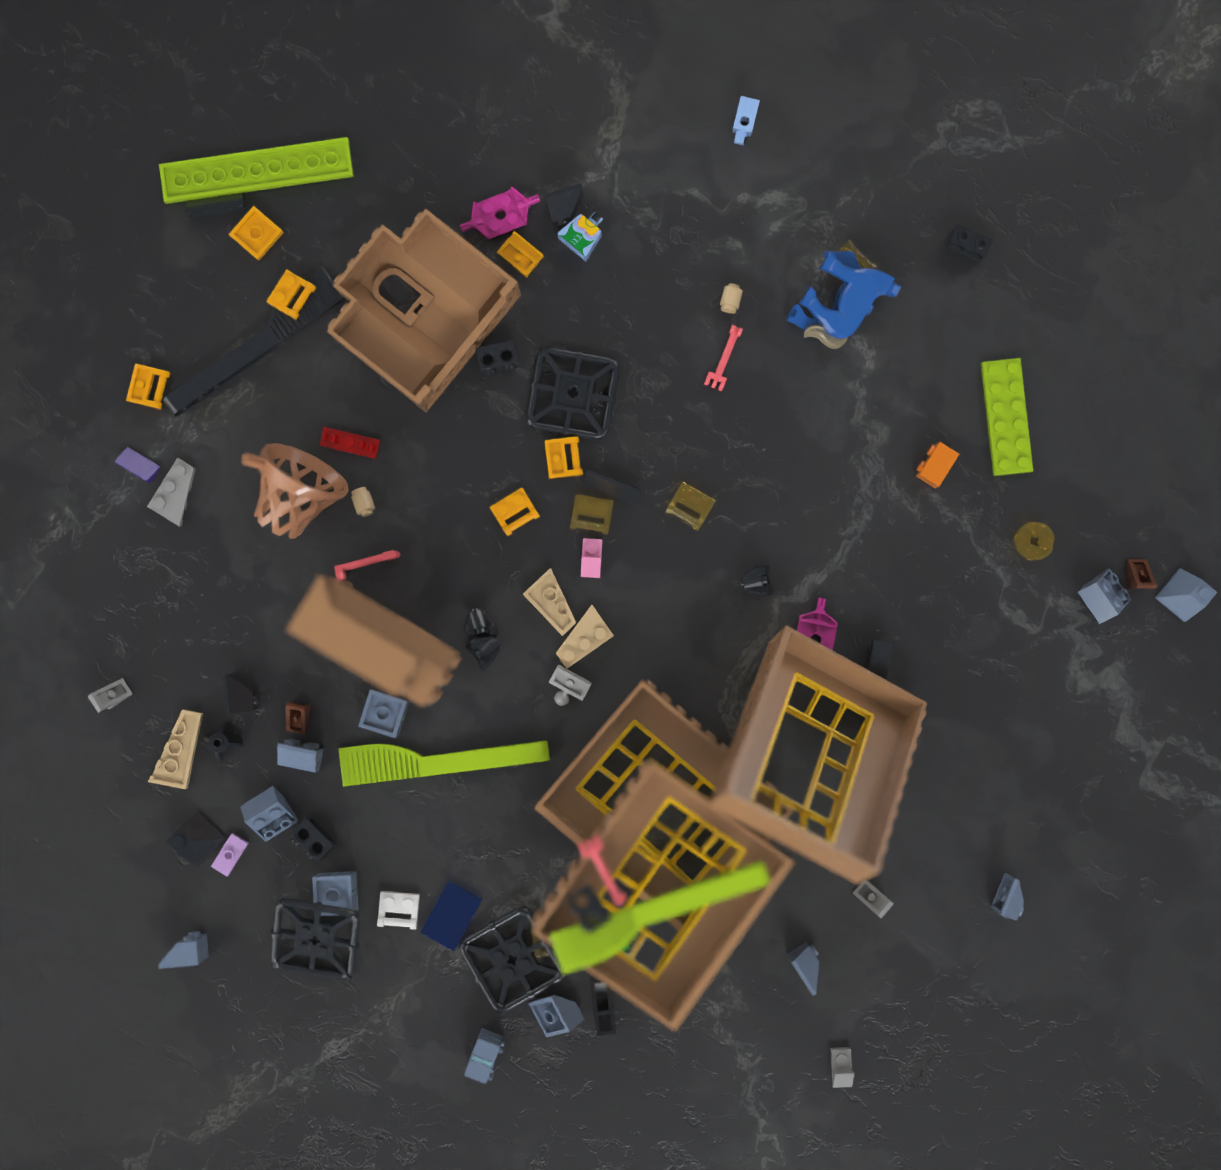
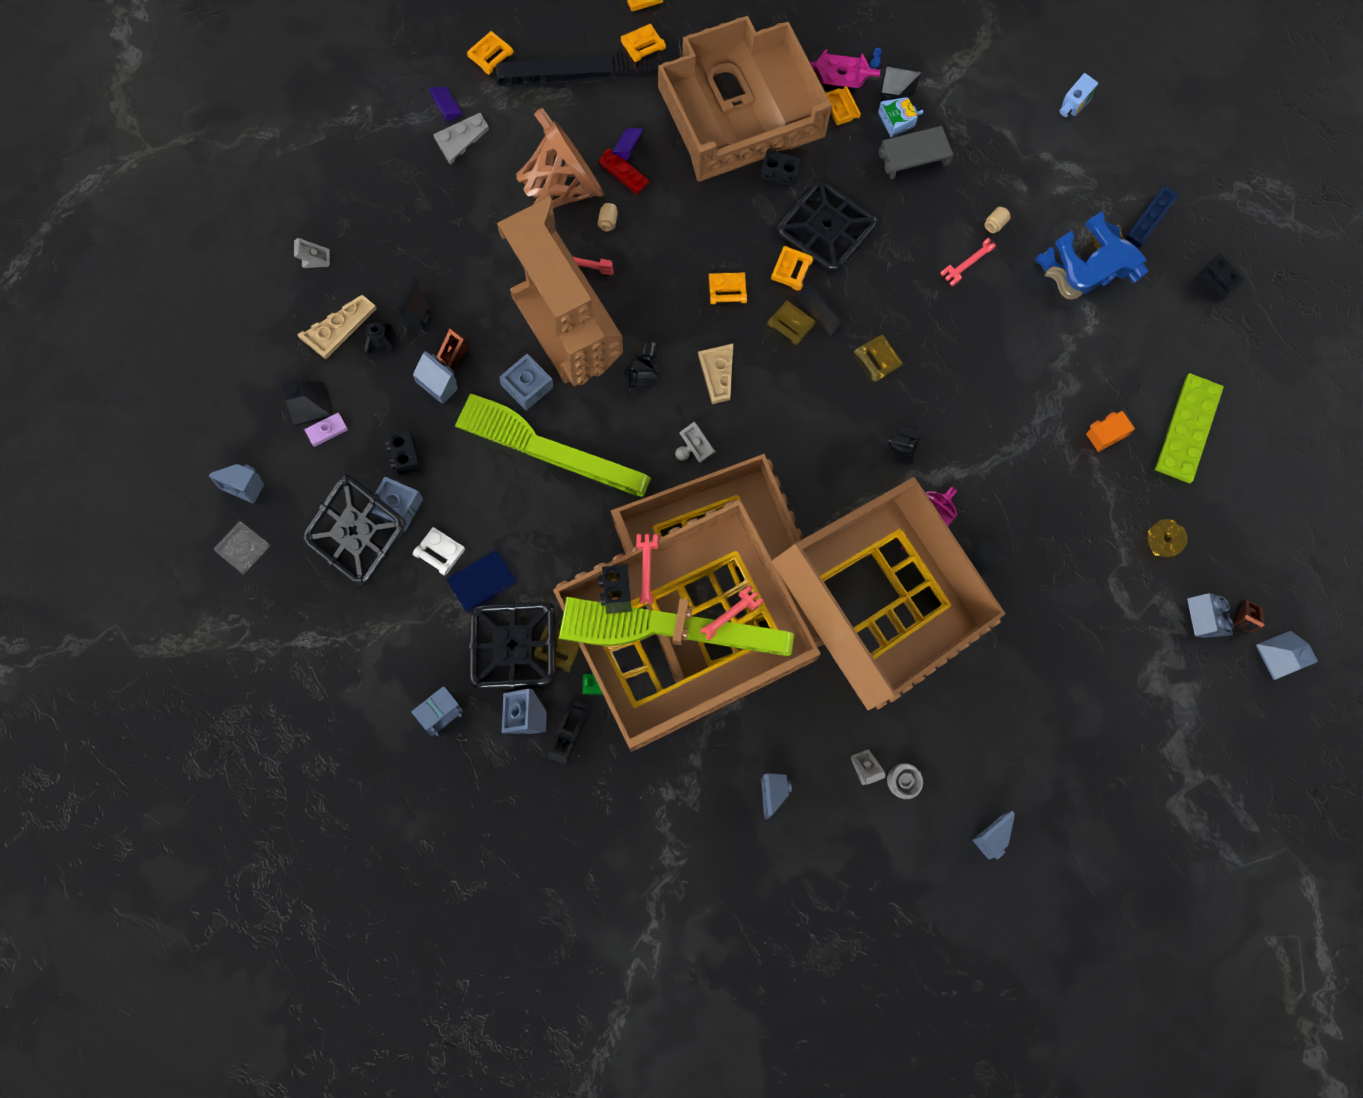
camera: 25 degrees right, 15 degrees down
(224, 1004) = (241, 547): none -> clear plate
(268, 814) = (379, 413): sand blue slope -> none
(337, 412) = (628, 142): none -> dark purple slope
(527, 185) = (876, 61): none -> blue piece
(584, 638) = (728, 416): tan wing -> none
(591, 558) = (771, 356): bright pink slope -> none
(617, 267) = (915, 150): none -> dark grey panel
(660, 900) = (680, 631): none -> medium nougat plate
(691, 903) = (747, 600): none -> coral hinge
(841, 1067) = (756, 912): light grey slope -> none
(875, 211) = (1152, 216): none -> dark blue plate
(909, 889) = (905, 781): none -> light grey piece

